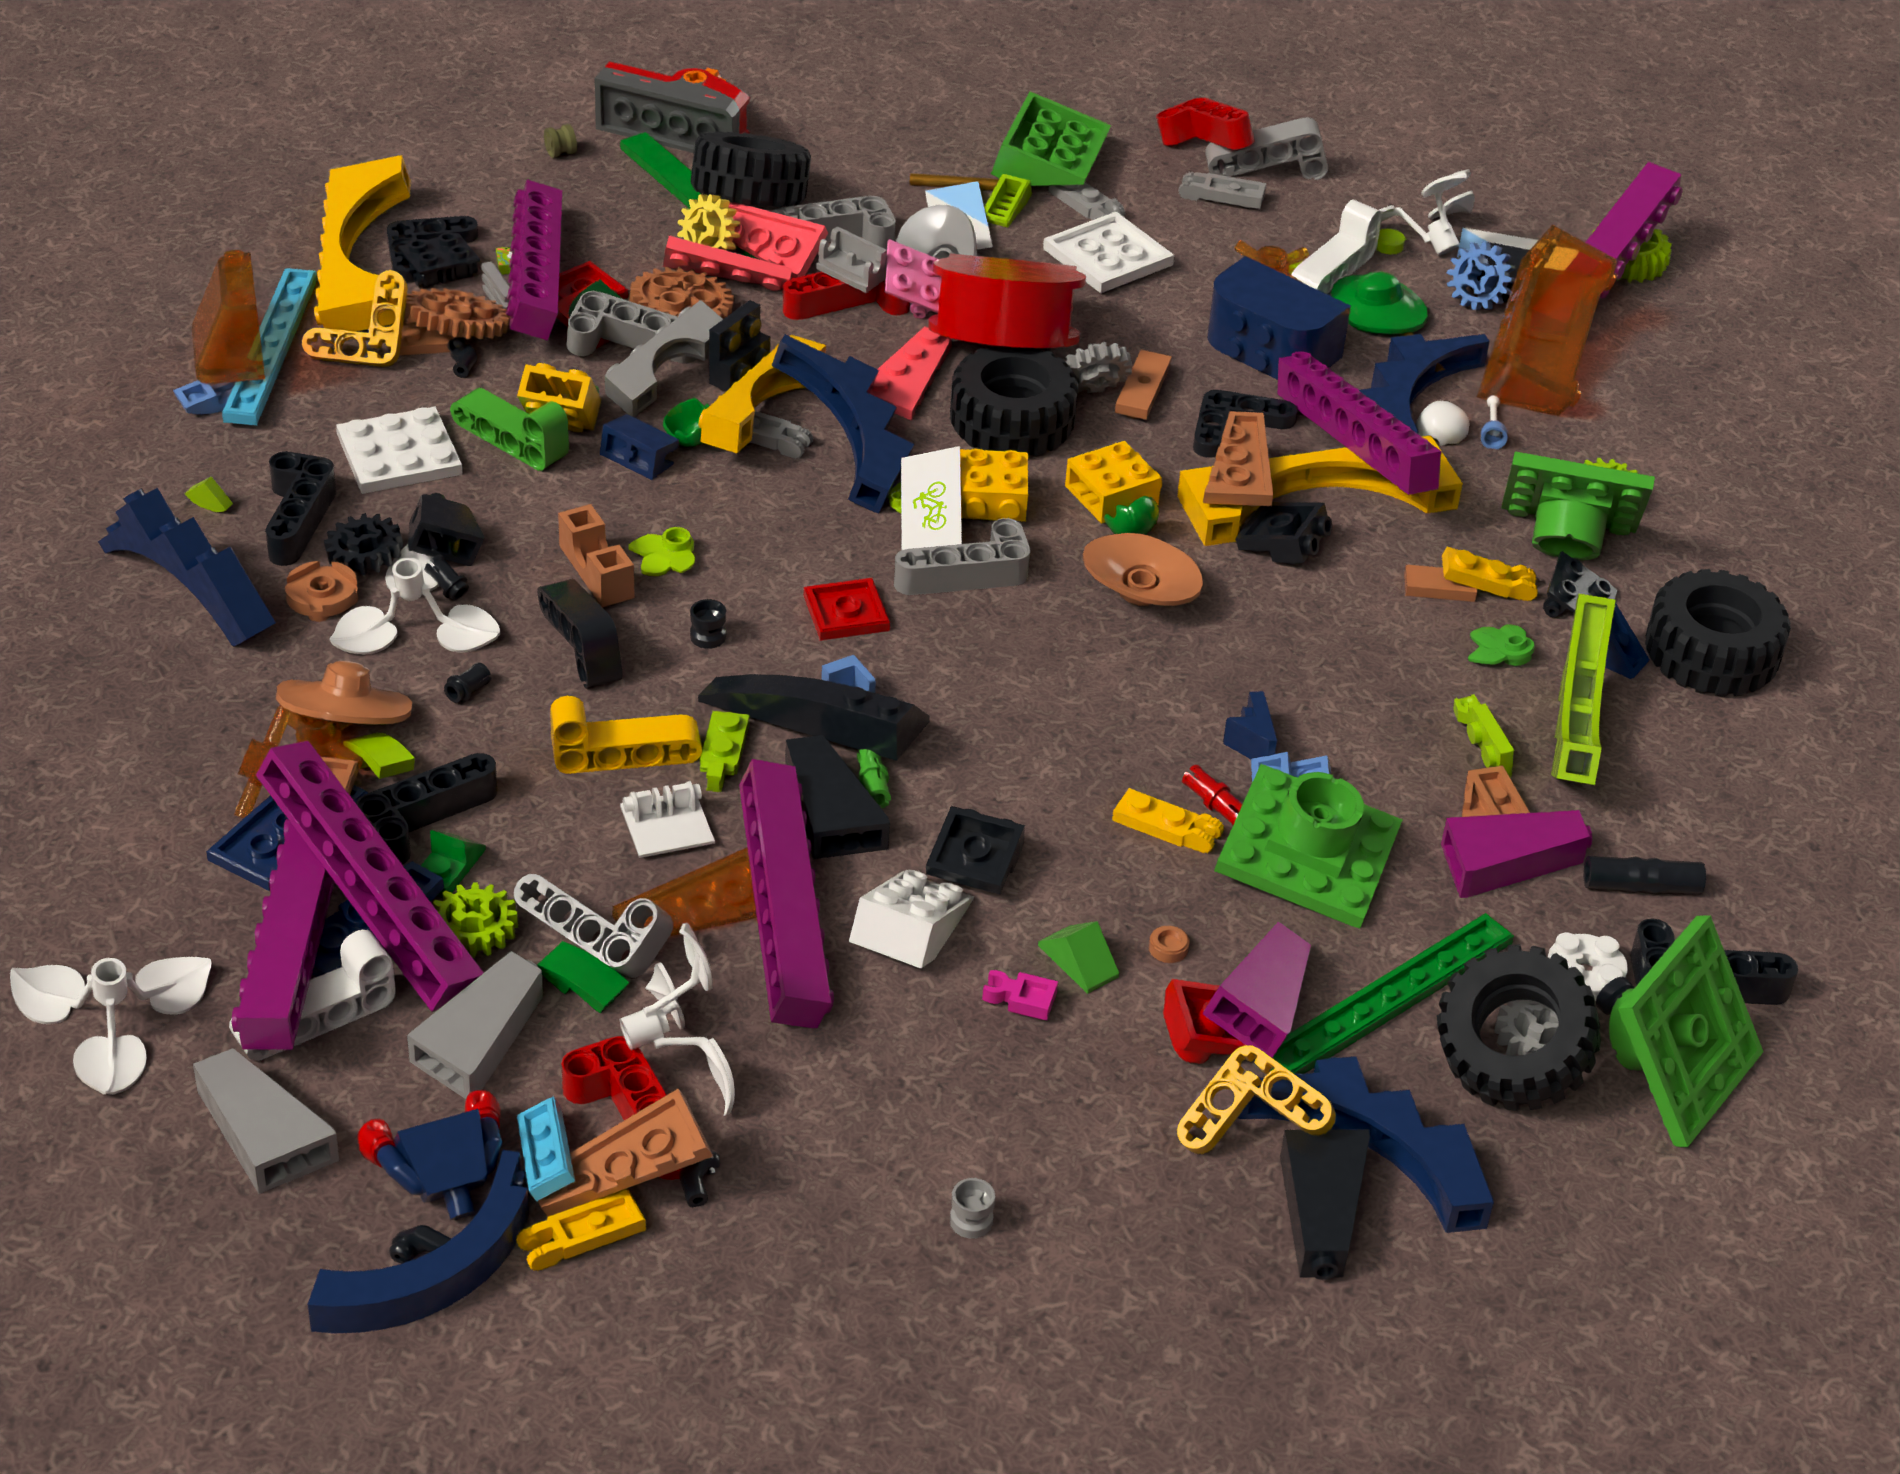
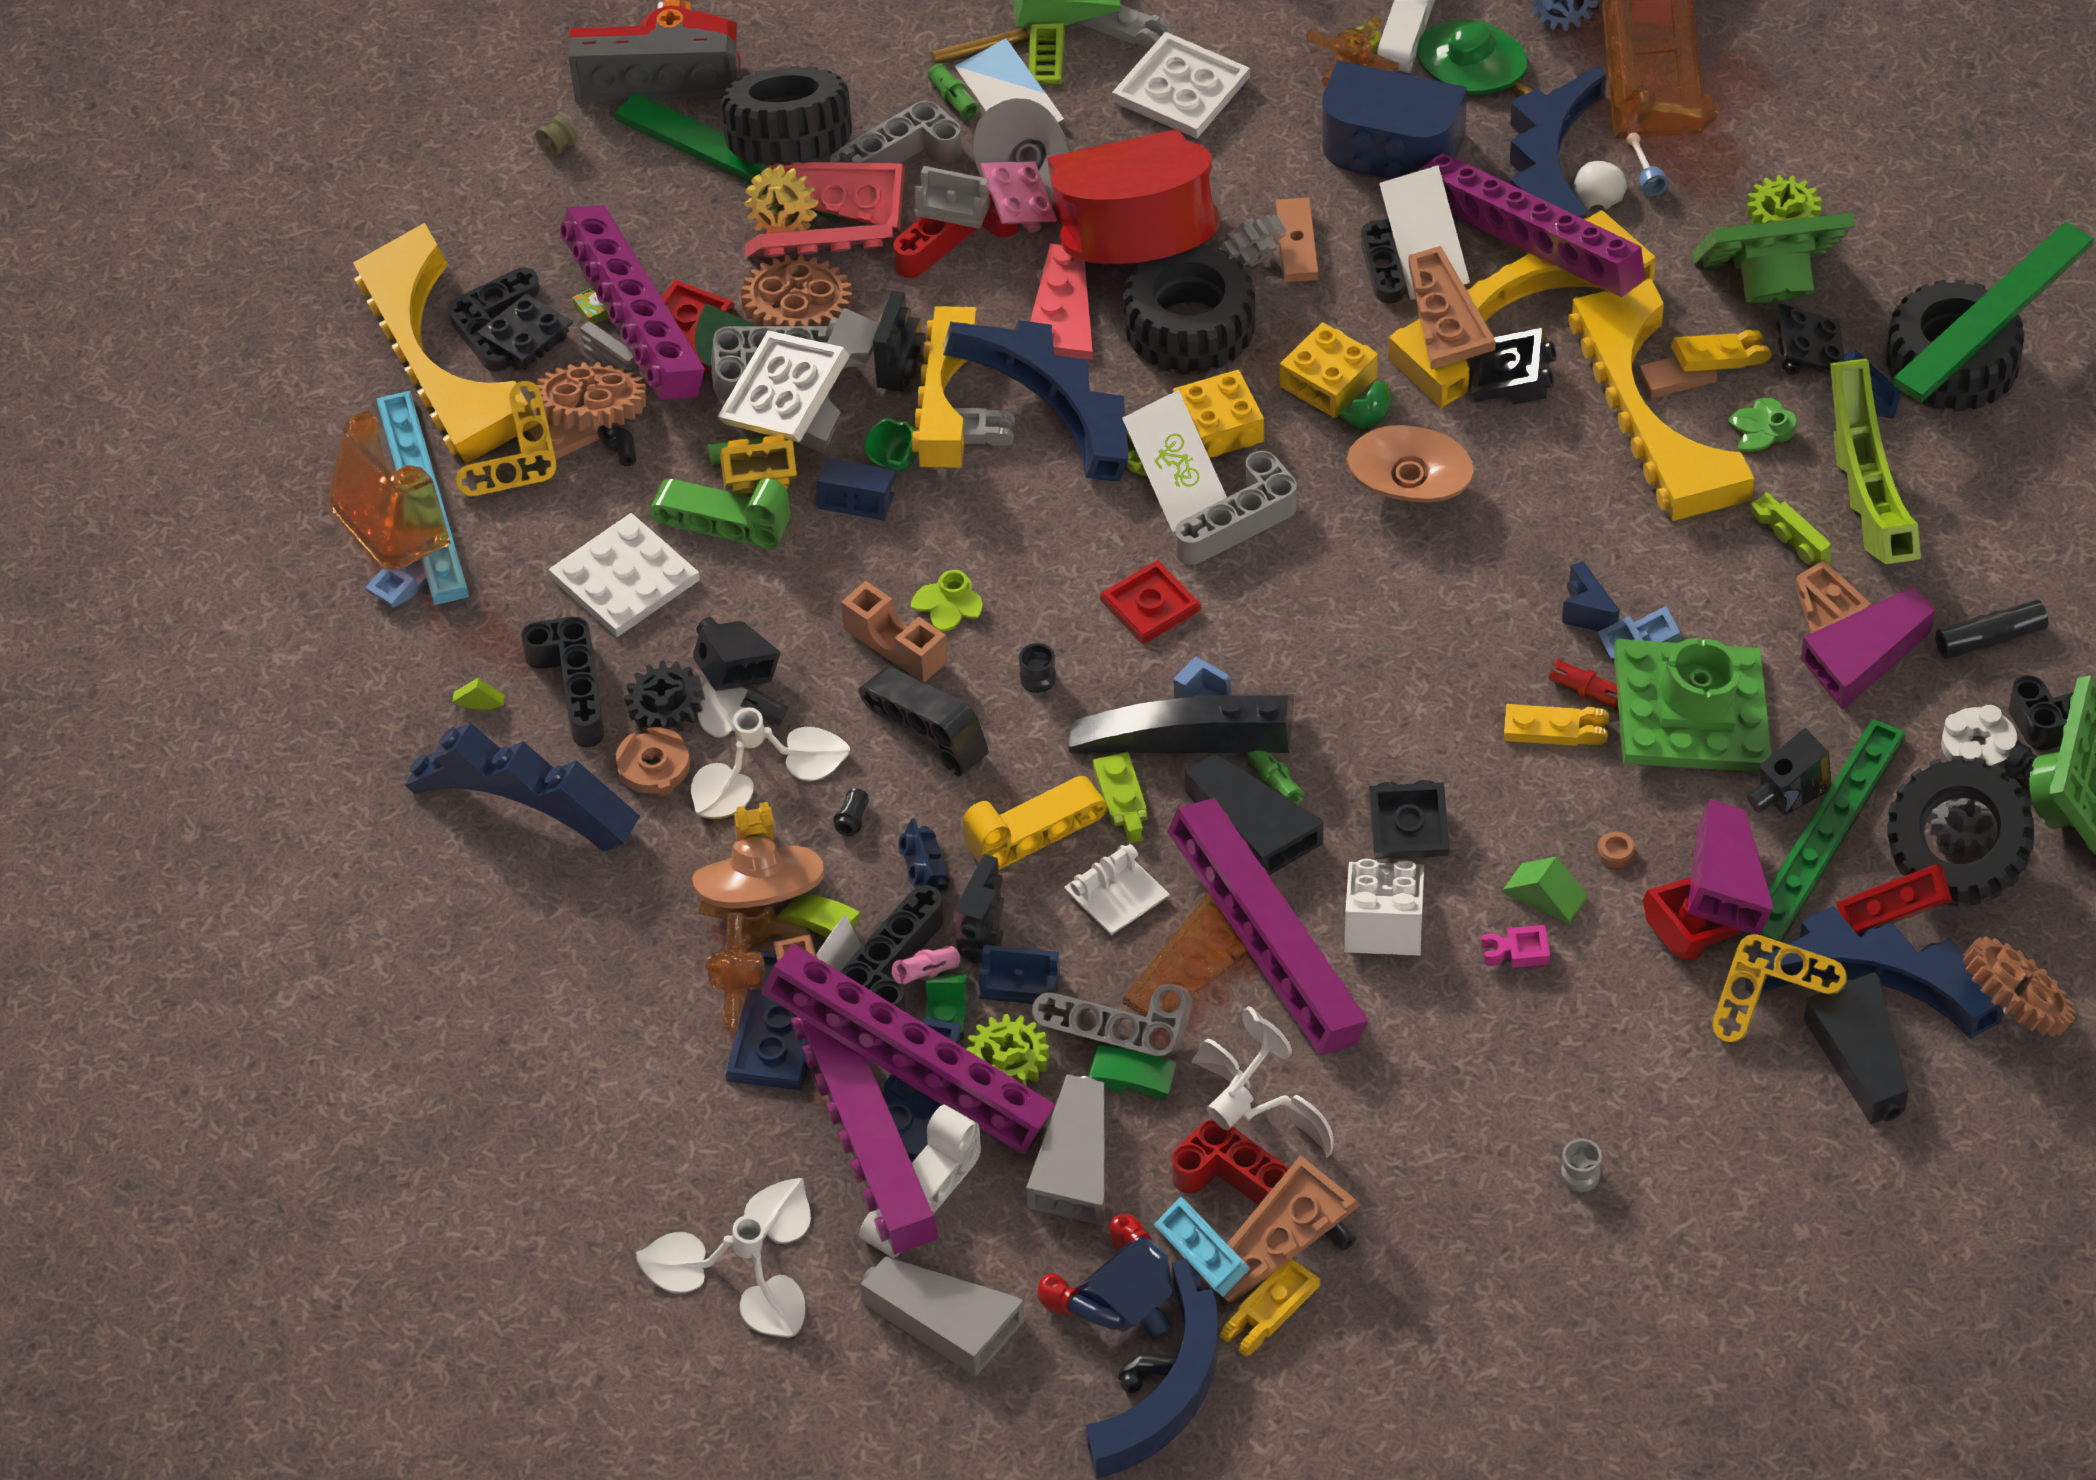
camera: 15 degrees left, 10 degrees up
(364, 650) = (754, 822): none -> yellow hinge
(374, 776) = (839, 945): none -> white sticker
(424, 816) = (925, 964): none -> bright pink pin
(509, 738) = (918, 847): none -> dark blue hinge
(521, 789) = (980, 911): none -> black plate
(527, 852) = (1017, 974): none -> dark blue hinge
(617, 343) = (783, 386): none -> white plate
(910, 201) = (944, 81): none -> bright green pin
(1265, 388) = (1422, 219): none -> white sticker
(1375, 931) = (1793, 775): none -> black torso
(1403, 656) = (1685, 473): none -> yellow arch
(1424, 1069) = (1896, 899): none -> red tile
(1528, 1214) = (2000, 971): none -> nougat gear
(1762, 607) = (1992, 312): none -> green tile

